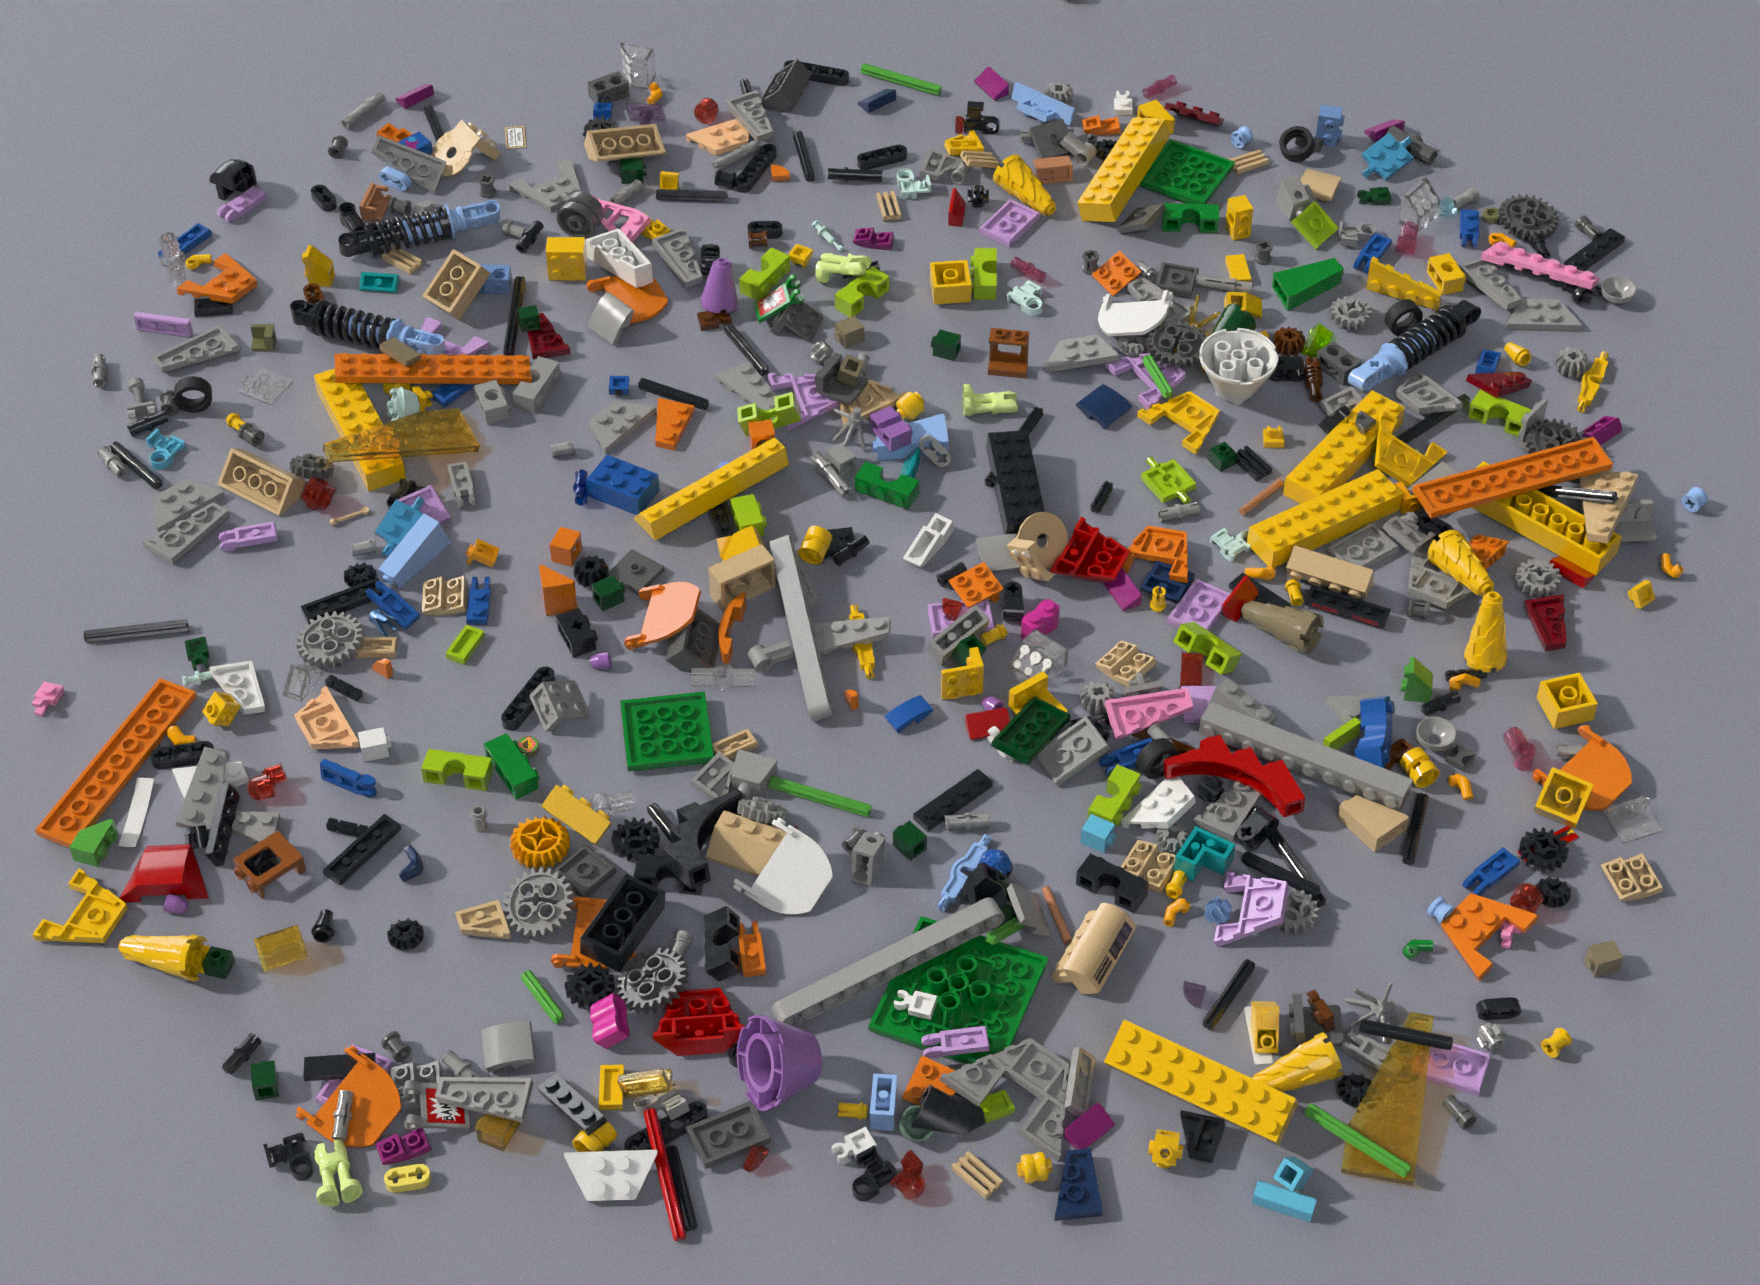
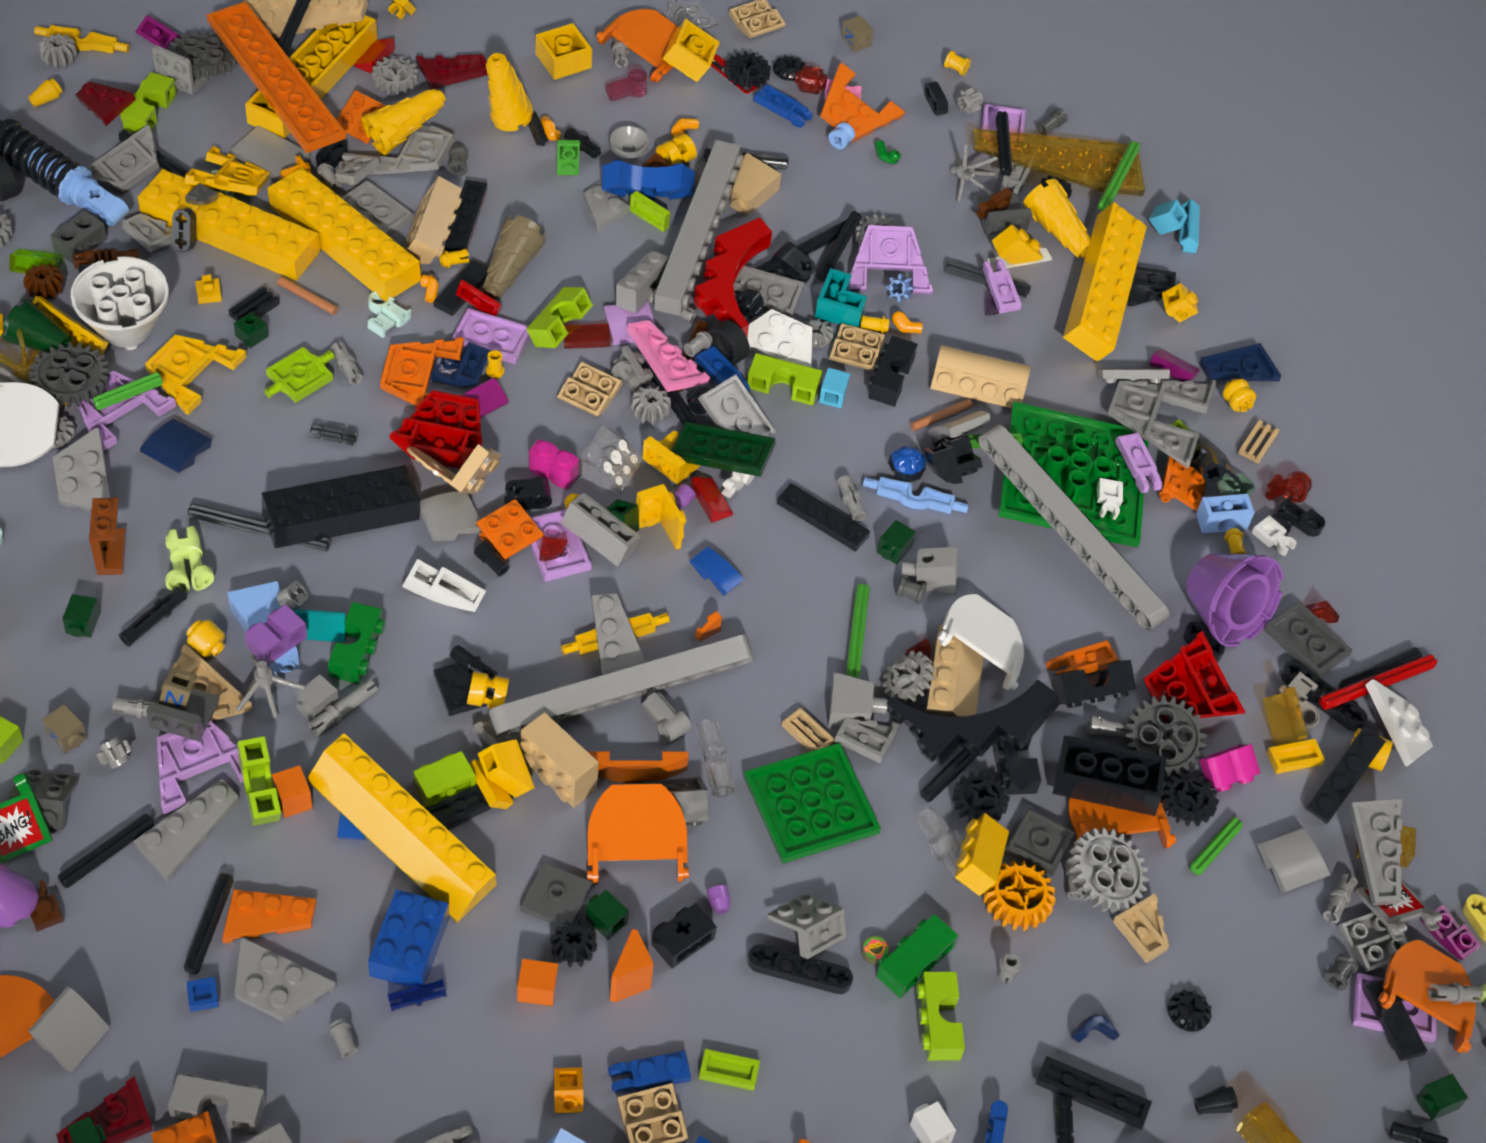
camera: 110 degrees left, 5 degrees up
(944, 386) = (161, 609): none -> black pin
(1206, 990) = (1002, 287): none -> lavender hinge
(1460, 757) = (651, 128): flat silver tile -> none
(1488, 362) = (71, 118): blue slope -> none

